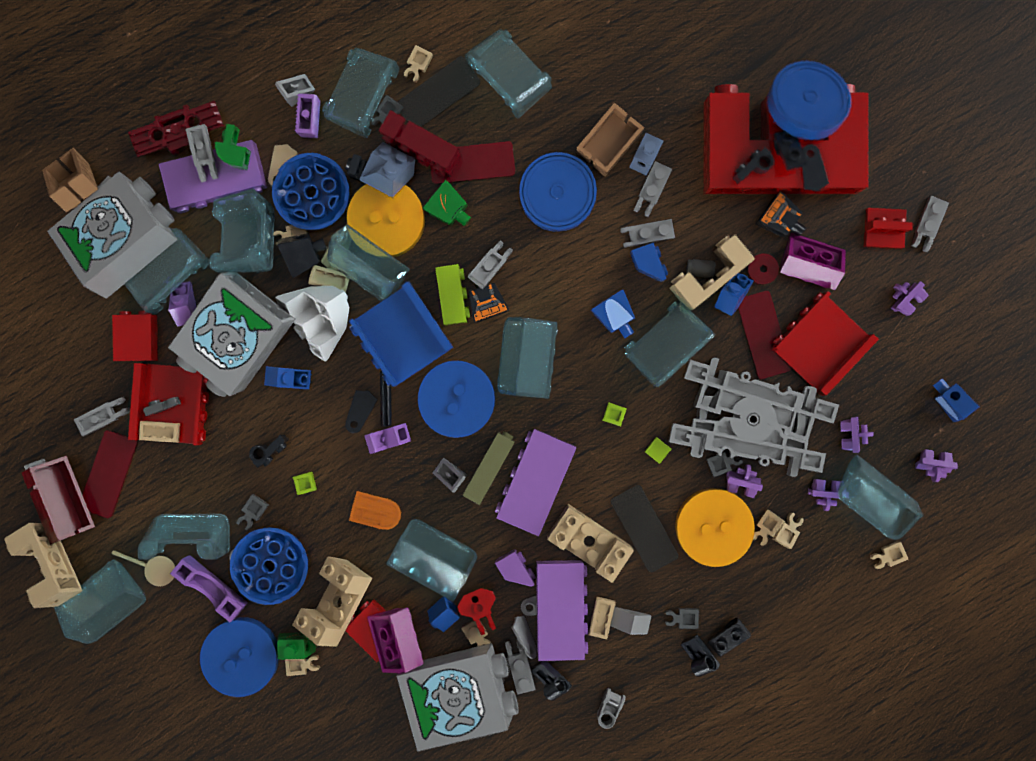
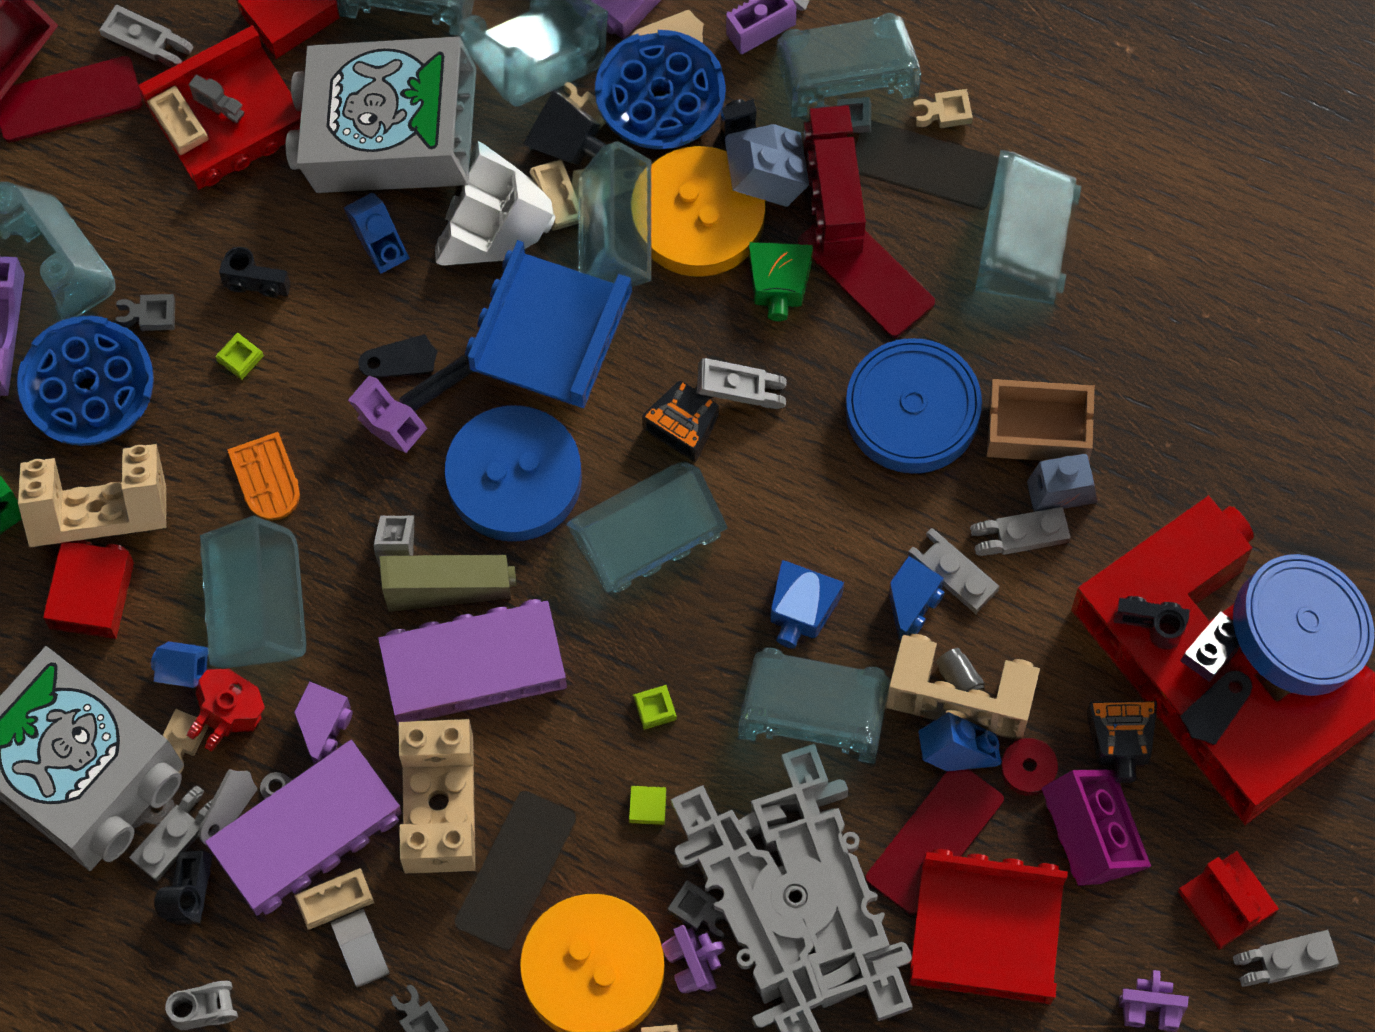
camera: 60 degrees right, 20 degrees down
(182, 303) = (383, 26): medium lavender slope -> none
(395, 640) = (97, 615): magenta slope -> none
(452, 294) = (657, 366): lime brick -> none

